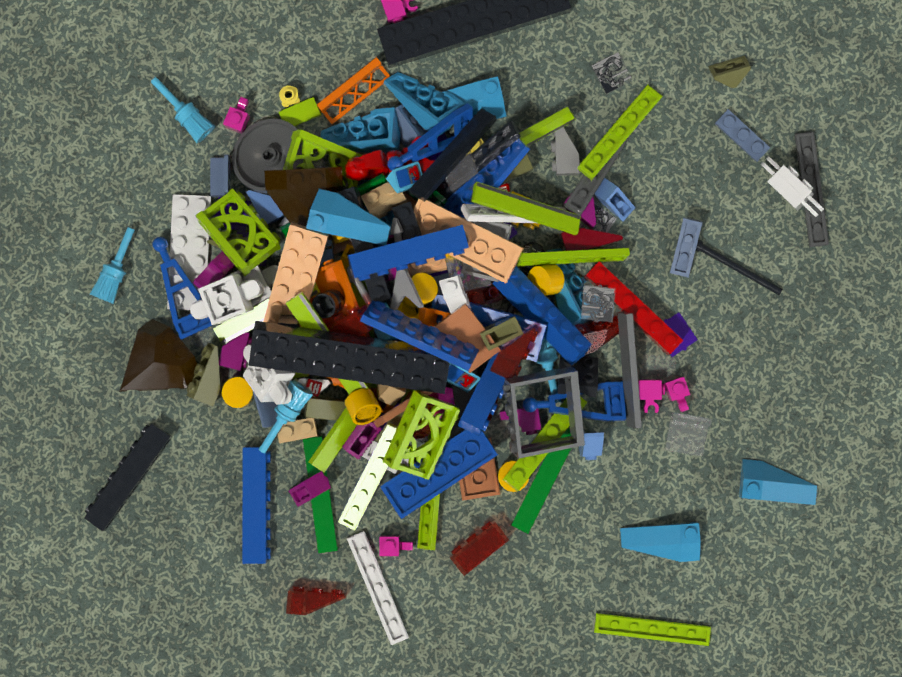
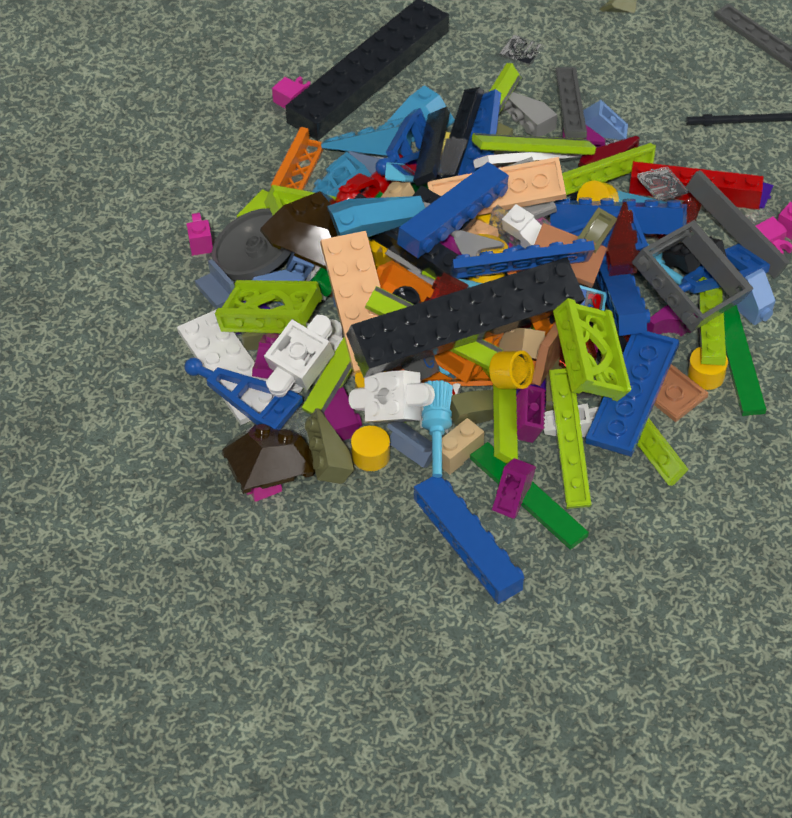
camera: 30 degrees left, 35 degrees down
(112, 273) = (160, 421): medium azure piece -> none
(127, 477) = (307, 592): black brick -> none
(187, 114) = (147, 257): medium azure piece -> none
(289, 101) = (237, 198): light yellow brick -> none
(305, 602) = (596, 595): clear red slope -> none
(377, 588) = (660, 544): white tile -> none
(390, 546) = (641, 491): dark pink brick -> none
(478, 547) = (729, 445): clear red brick -> none
(619, 132) = (566, 75): lime tile -> none
(686, 247) = (699, 120): sand blue plate -> none
(742, 135) = (672, 35): sand blue plate -> none
(790, 187) = (748, 33): white brick -> none

